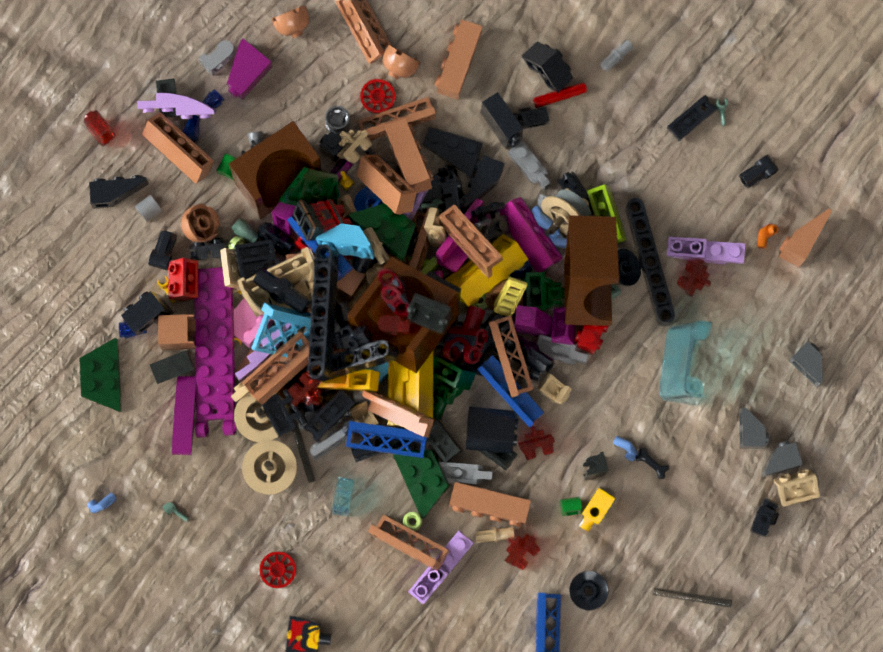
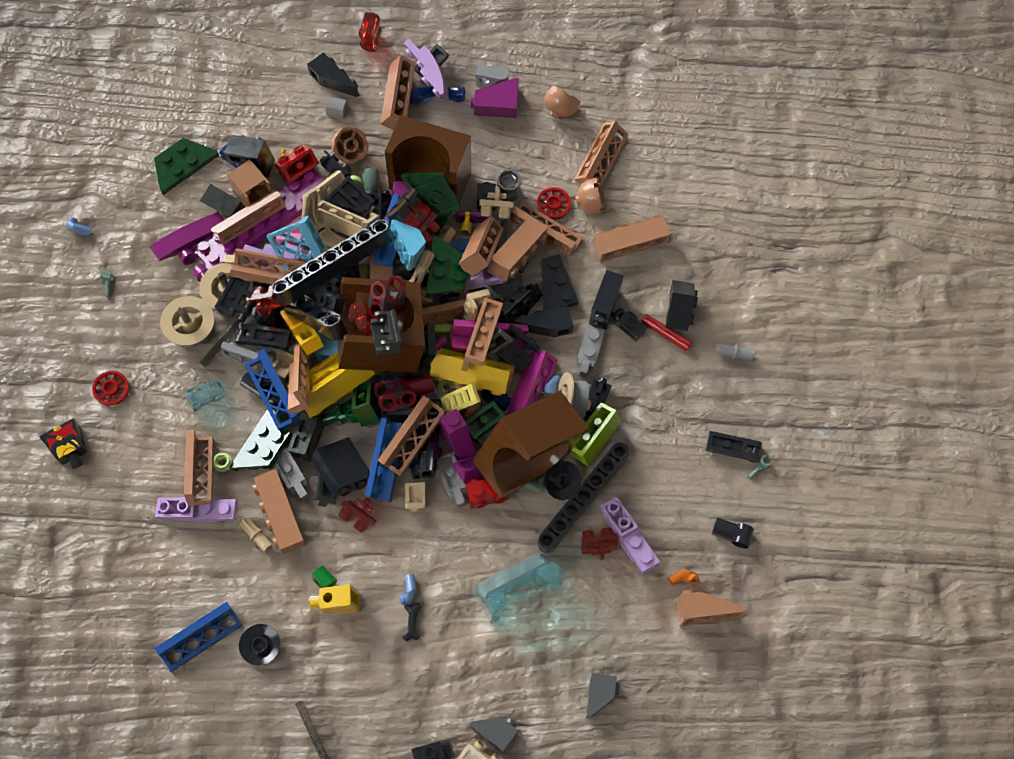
camera: 55 degrees right, 10 degrees down
(162, 254) = (310, 137): black piece -> none
(211, 353) = (248, 217): none -> nougat fence
(281, 290) = (331, 223): black piece -> none
(518, 548) = (265, 566): clear red hips -> none
(597, 466) = (372, 574): pearl dark grey hinge -> none
(752, 431) = (500, 687): dark grey slope -> none

